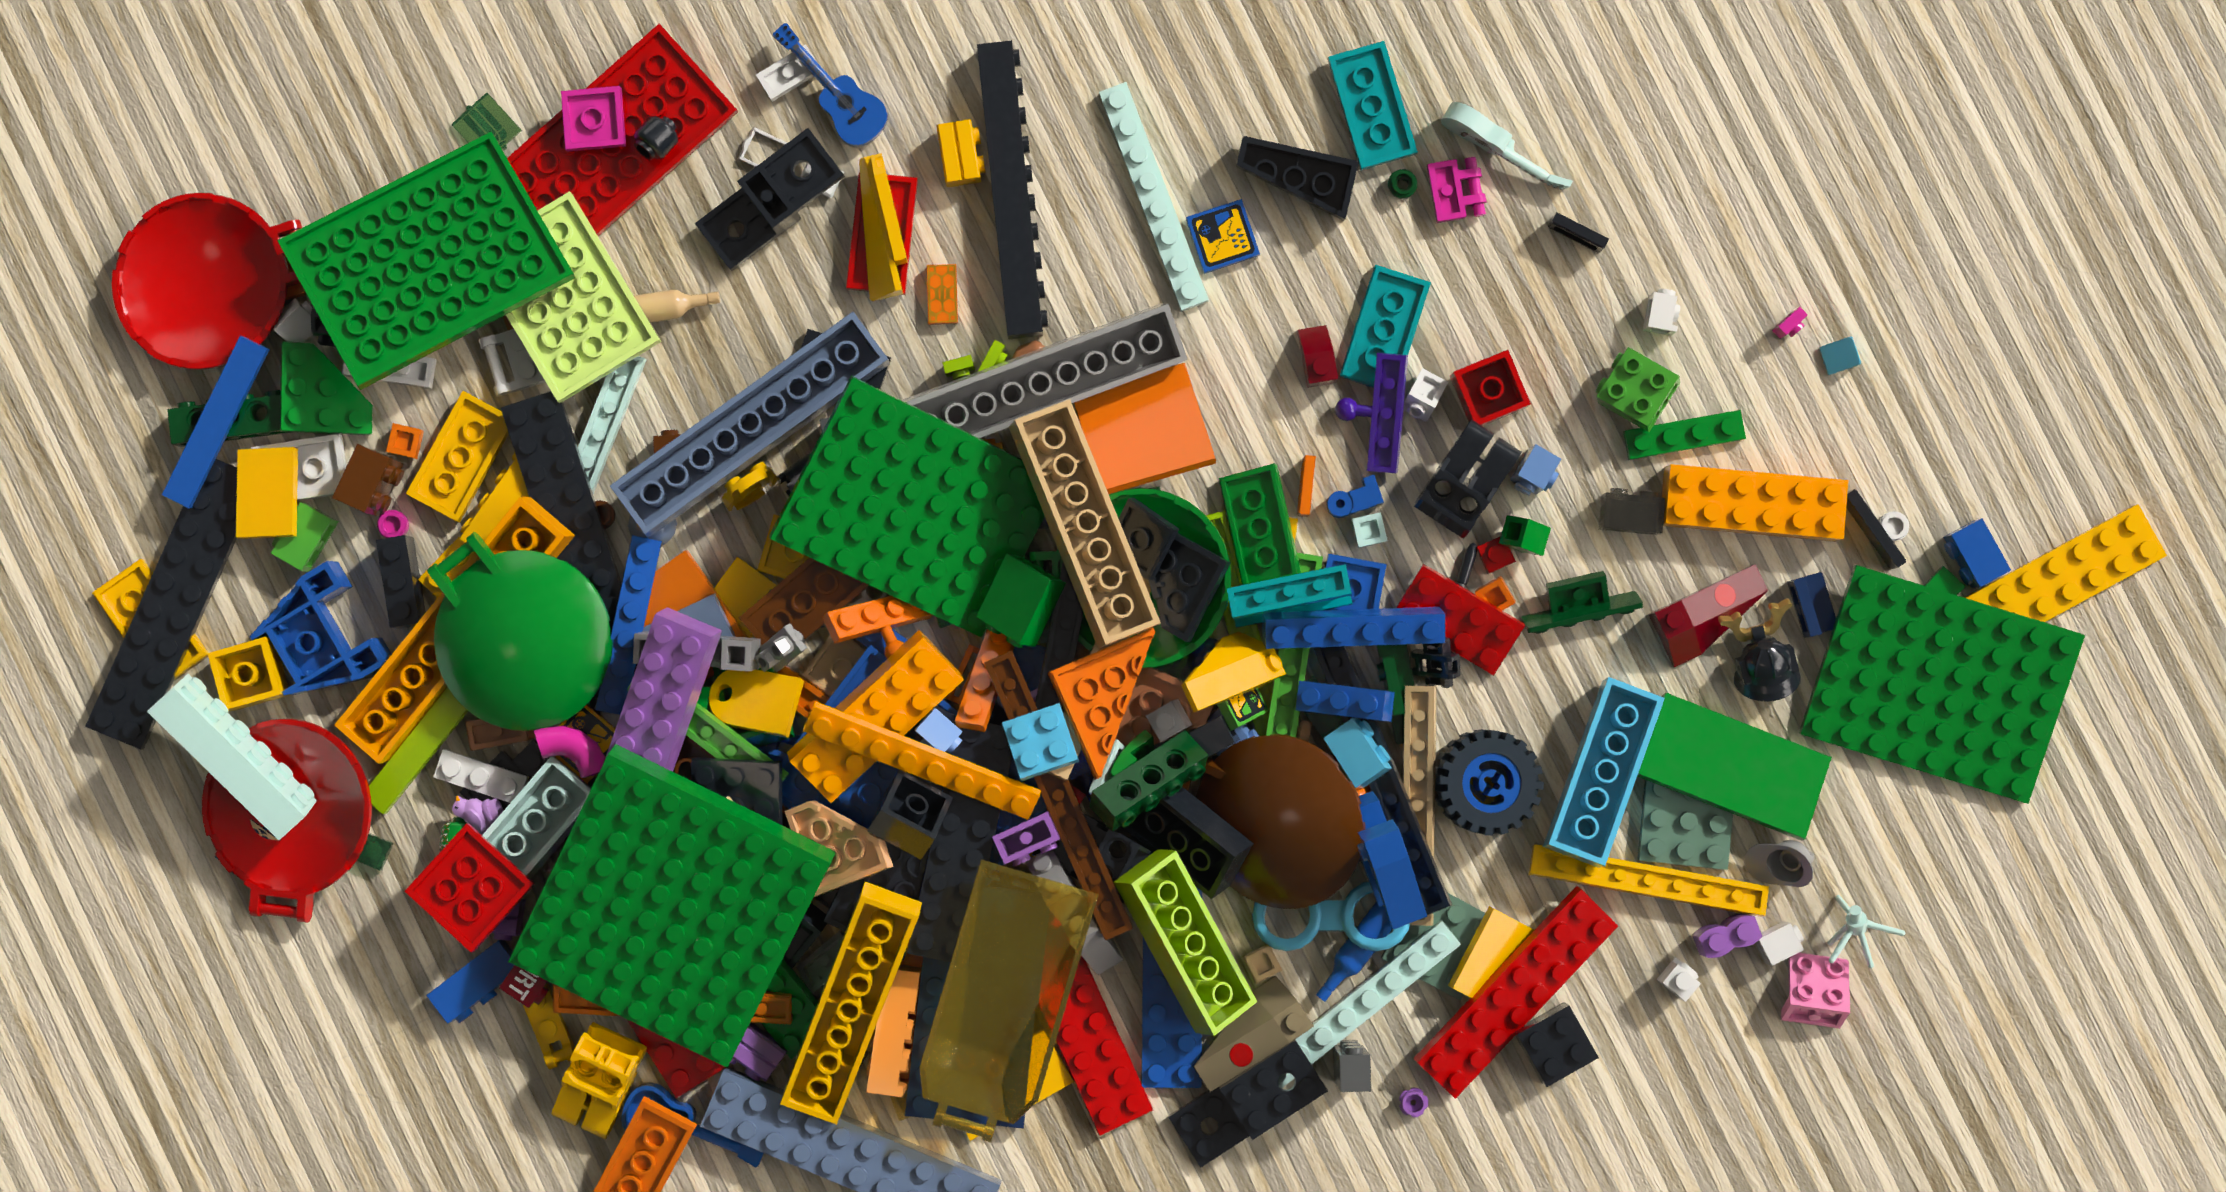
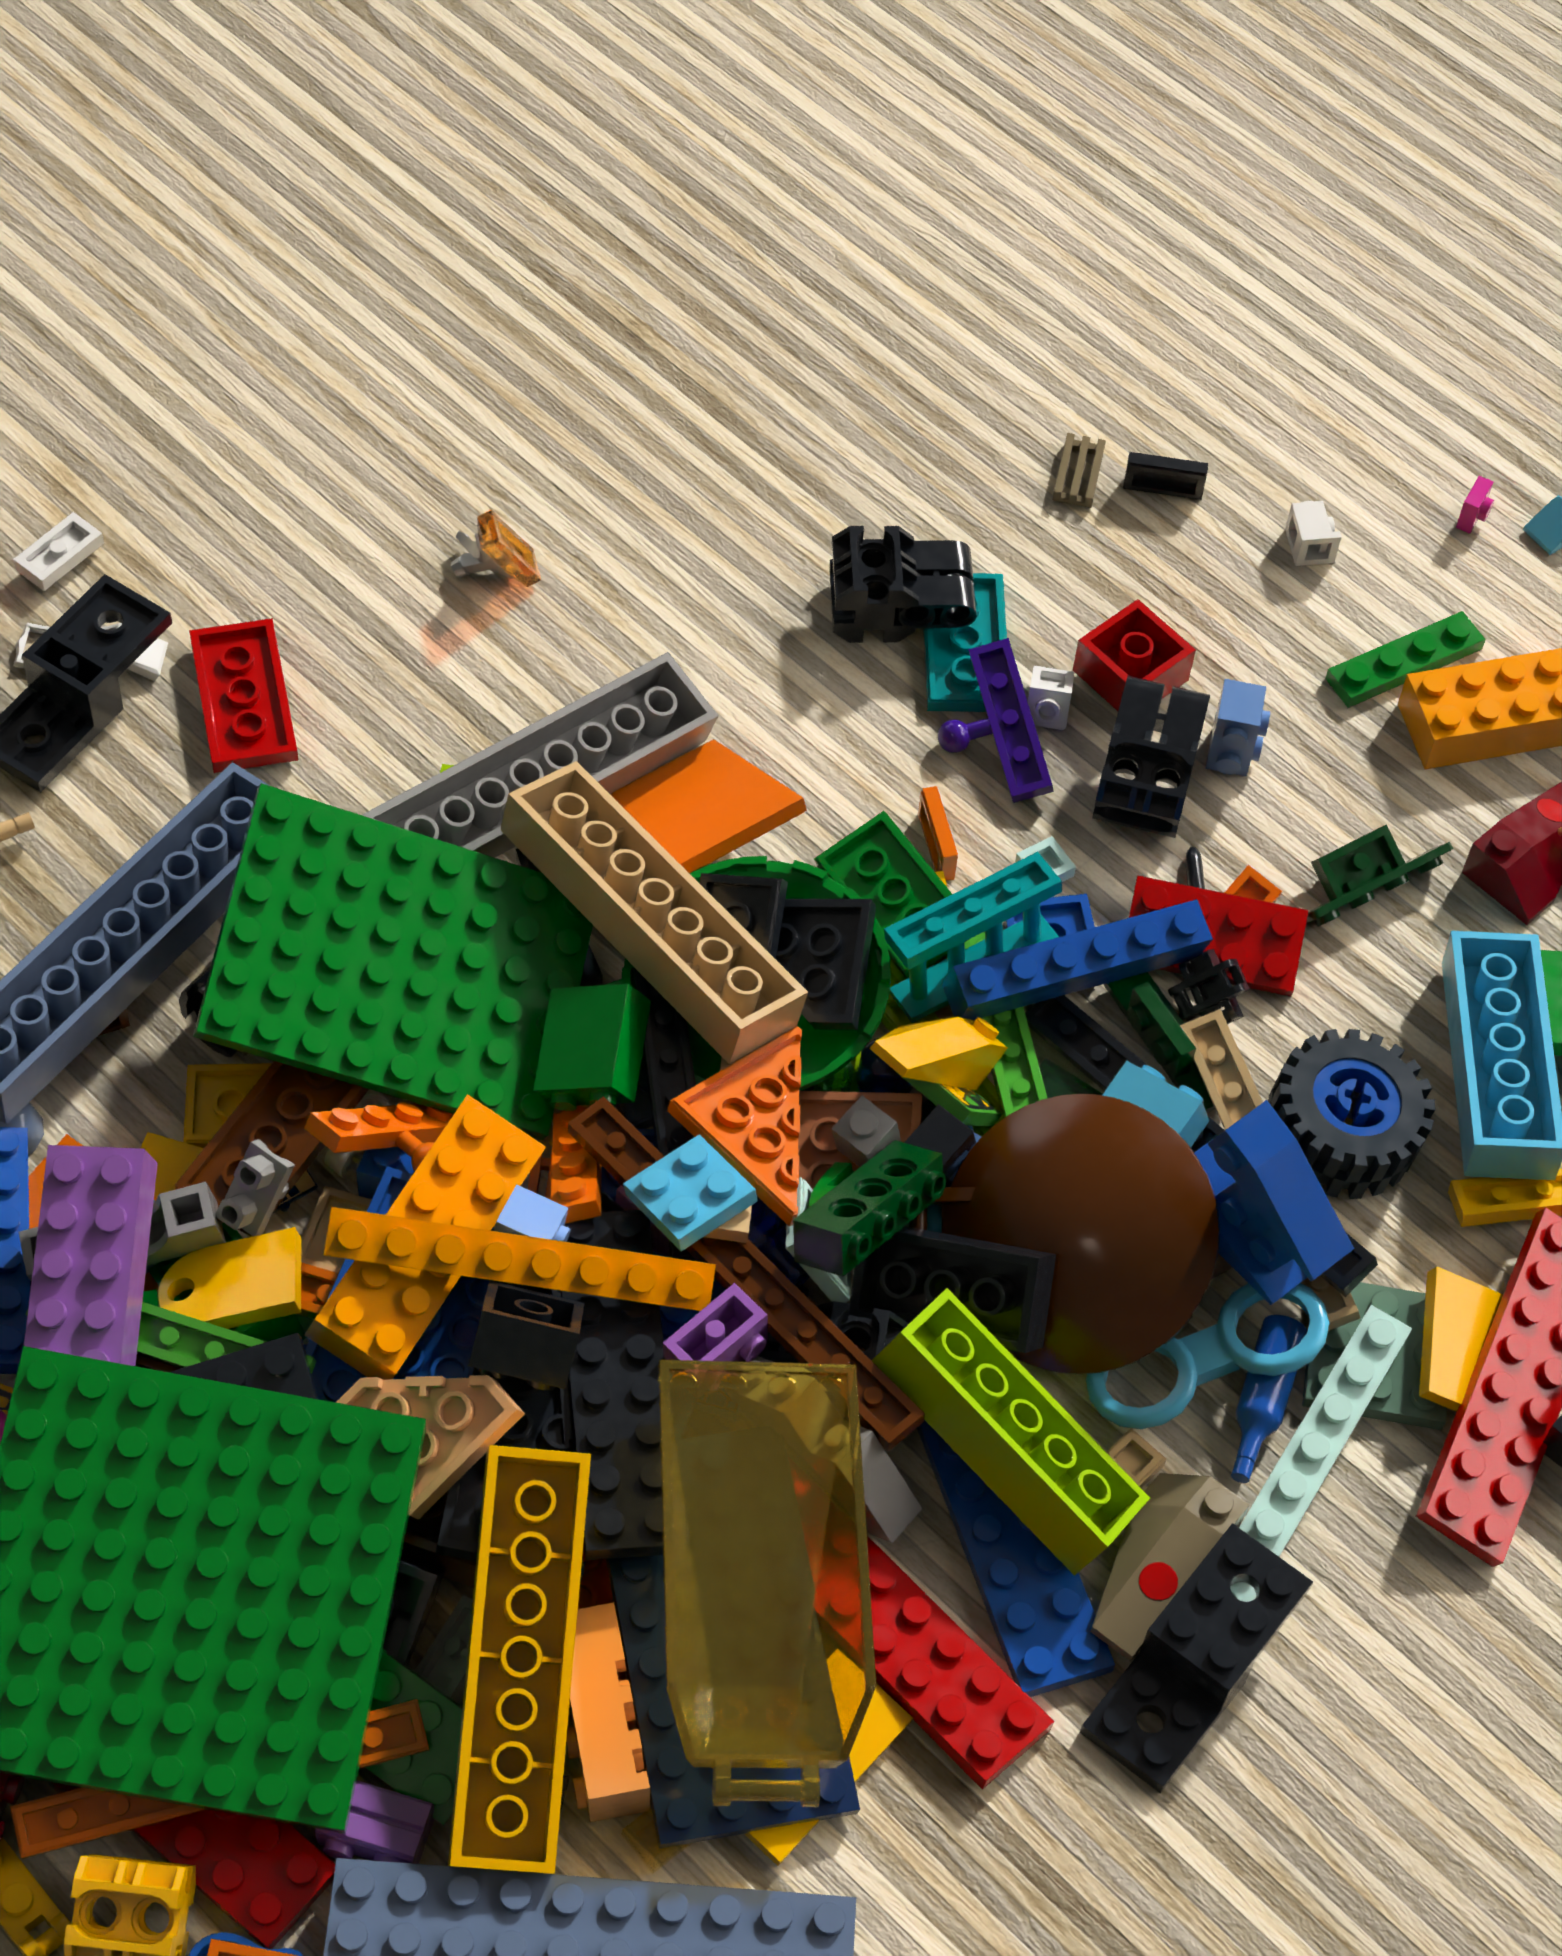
camera: 25 degrees left, 30 degrees down
(749, 488) = (140, 1027): yellow plate -> none
(855, 113) = (157, 568): blue piece -> none
(881, 230) = (245, 683): yellow wedge -> none
(942, 294) = (350, 746): orange tile -> none
(959, 153) = (322, 581): yellow brick -> none
(1010, 189) = (405, 601): black brick -> none
(1085, 167) = (497, 550): none -> clear orange piece
(1153, 196) = (599, 570): light aqua plate -> none
(1222, 236) = (709, 592): tile -> none
(1306, 174) = (781, 491): black wedge -> none
(1317, 356) = (893, 690): dark red slope -> none
(1345, 701) = (1095, 1053): blue brick -> none
(1347, 503) = (1001, 839): blue leg -> none
(1351, 295) = (898, 584): none -> black connector
(1352, 1067) = (1334, 1536): dark grey brick -> none
(1372, 105) = (846, 411): teal plate -> none
(1406, 175) = (919, 481): dark green plate -> none
(1413, 1094) = (1450, 1579): medium lavender plate -> none
(1447, 190) = (981, 476): dark pink plate -> none
(1492, 138) = (985, 394): light aqua piece -> none
(1495, 555) = (1227, 853): red plate -> none
(1524, 535) = (1257, 809): green brick -> none
(1534, 183) = (1083, 447): none -> dark tan tile
(1632, 512) = (1383, 755): clear smoke brick -> none
(1637, 389) = (1322, 611): bright green brick -> none

